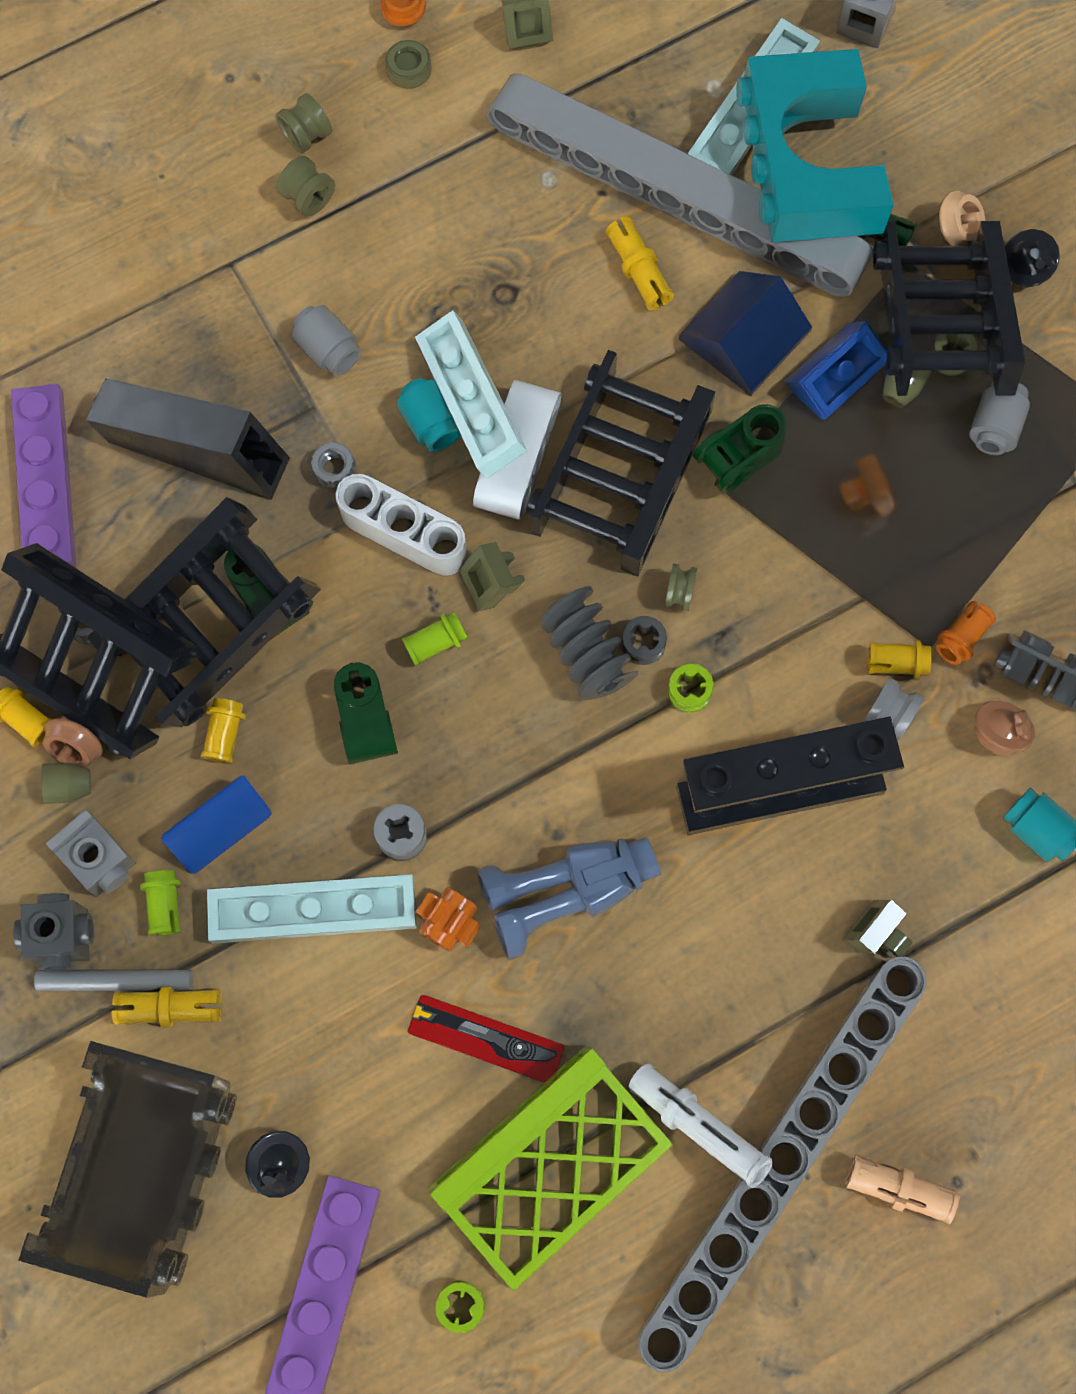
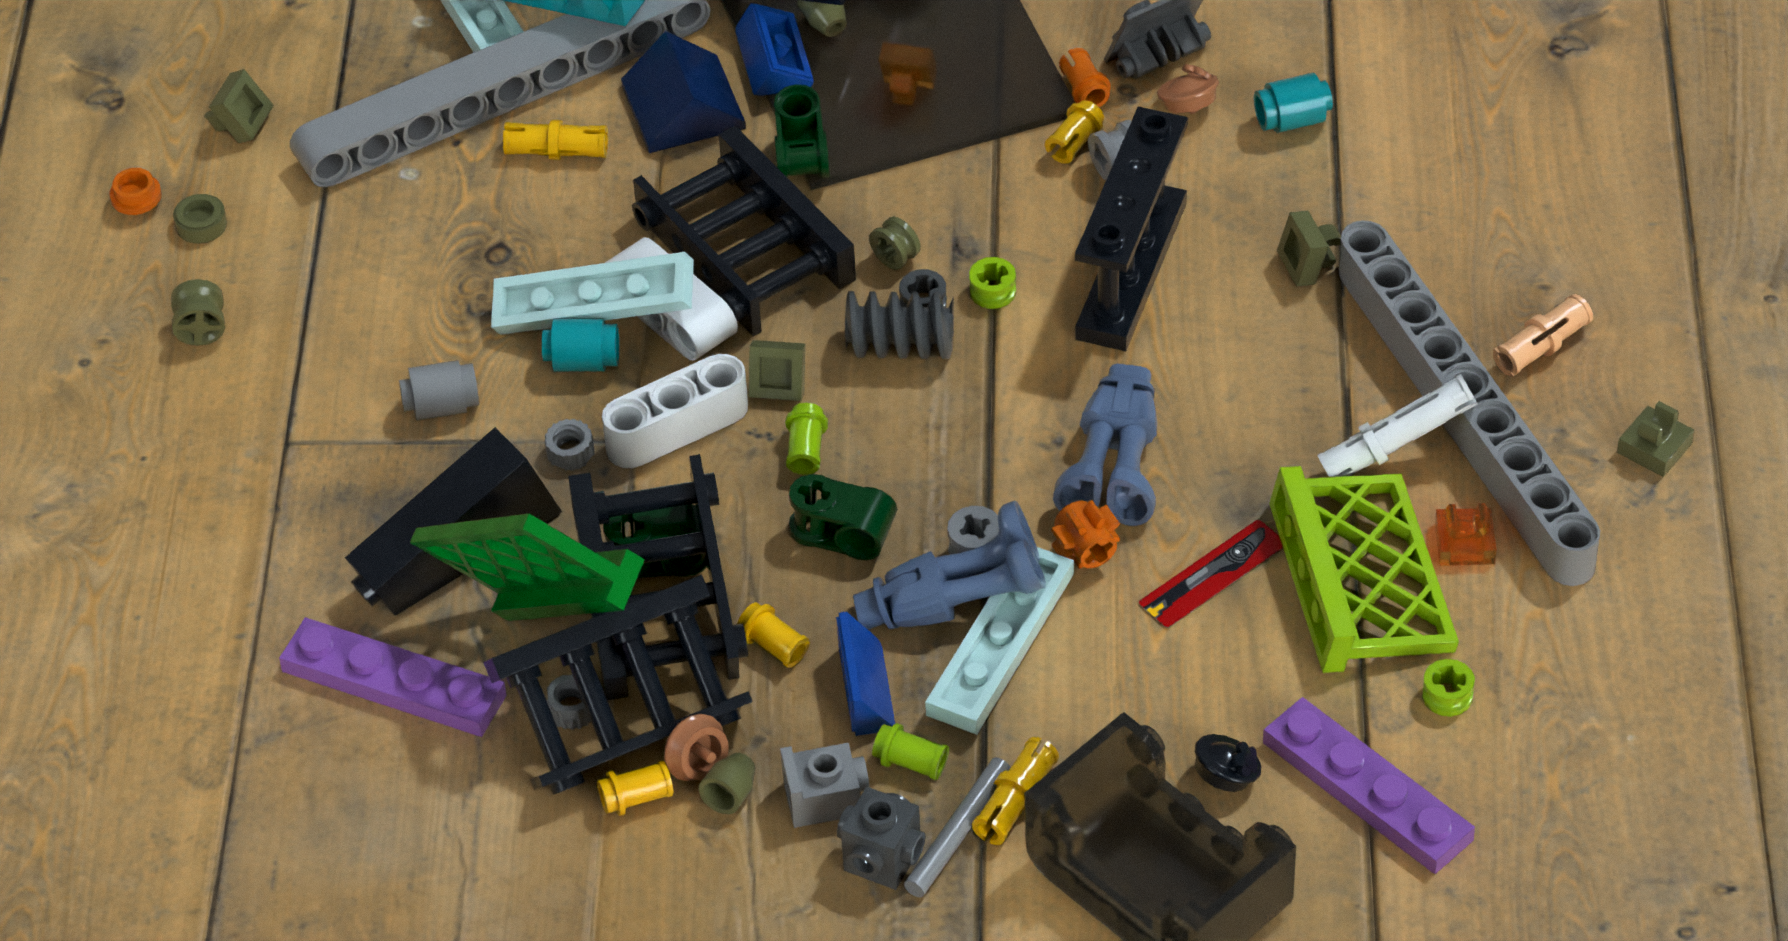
camera: 60 degrees left, 25 degrees down
(137, 547) = (533, 566): none -> green fence
(305, 186) = (266, 338): olive wheel -> none
(322, 821) = (930, 586): none -> sand blue piece
(636, 1235) = (1465, 536): none -> clear orange tile
(842, 1351) = (1656, 439): none -> olive tile

